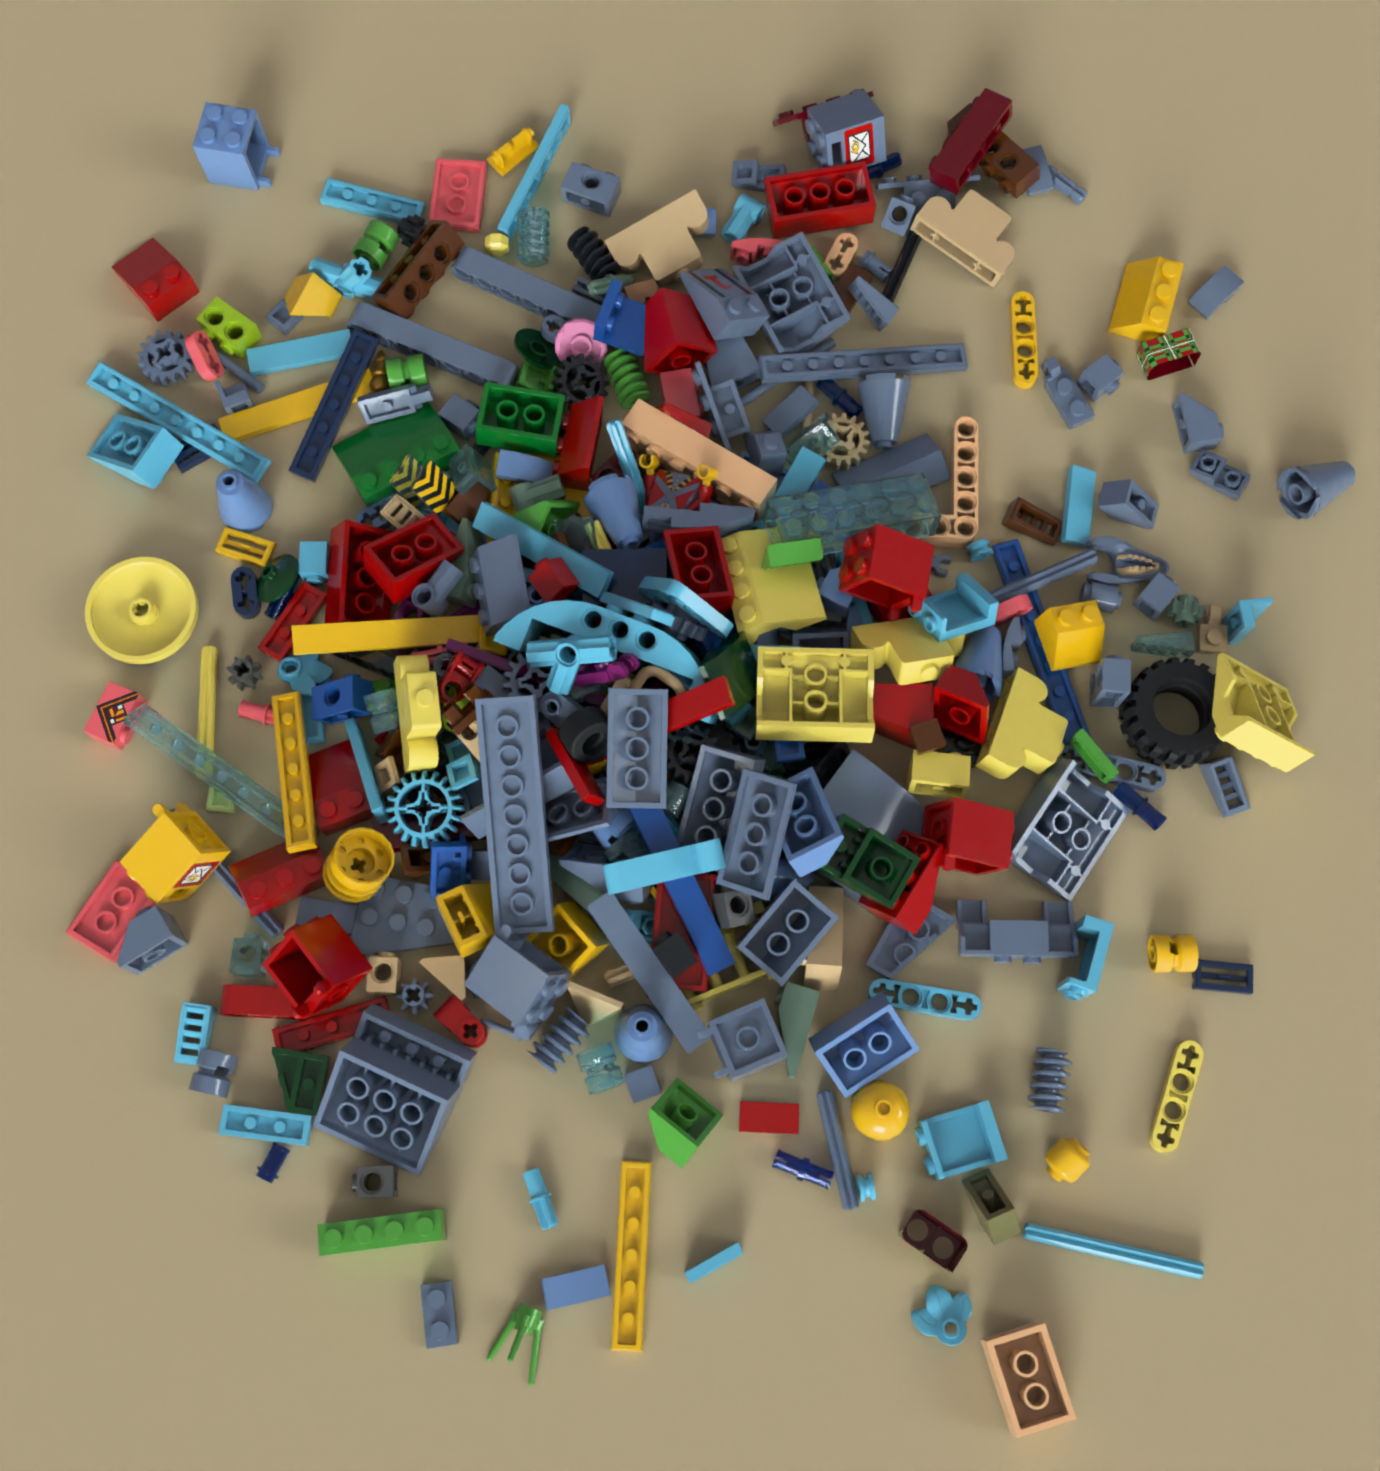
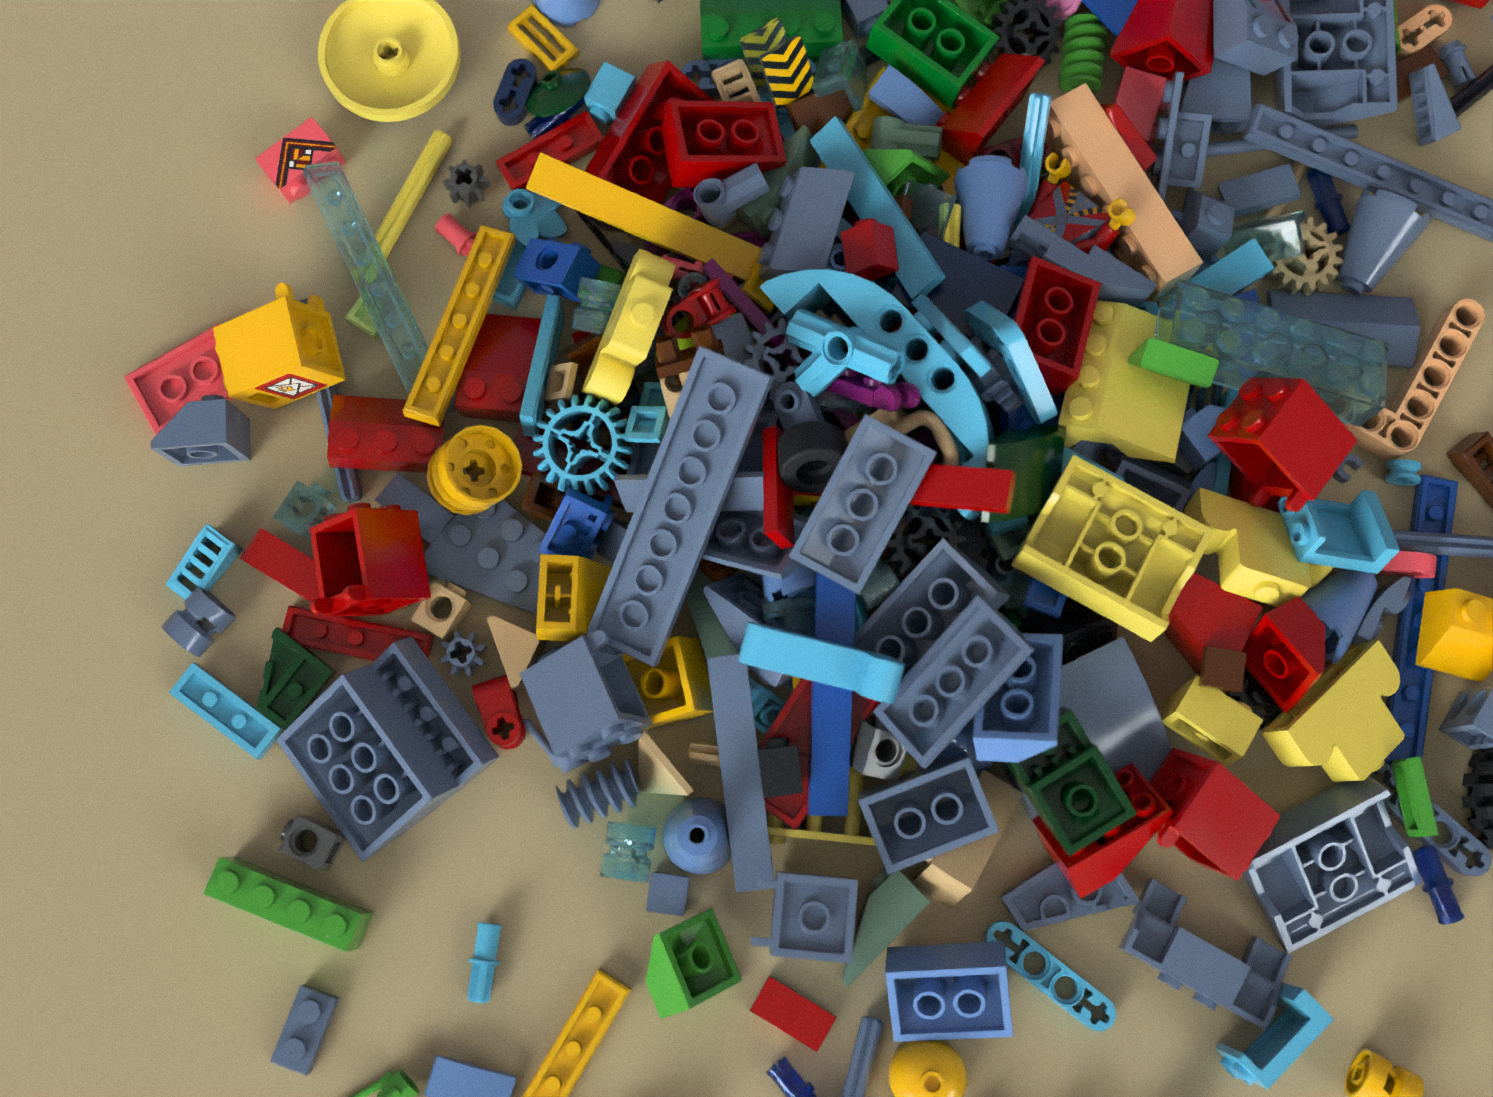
camera: 30 degrees right, 5 degrees up
(272, 1163) = (210, 758): clear blue pin -> none

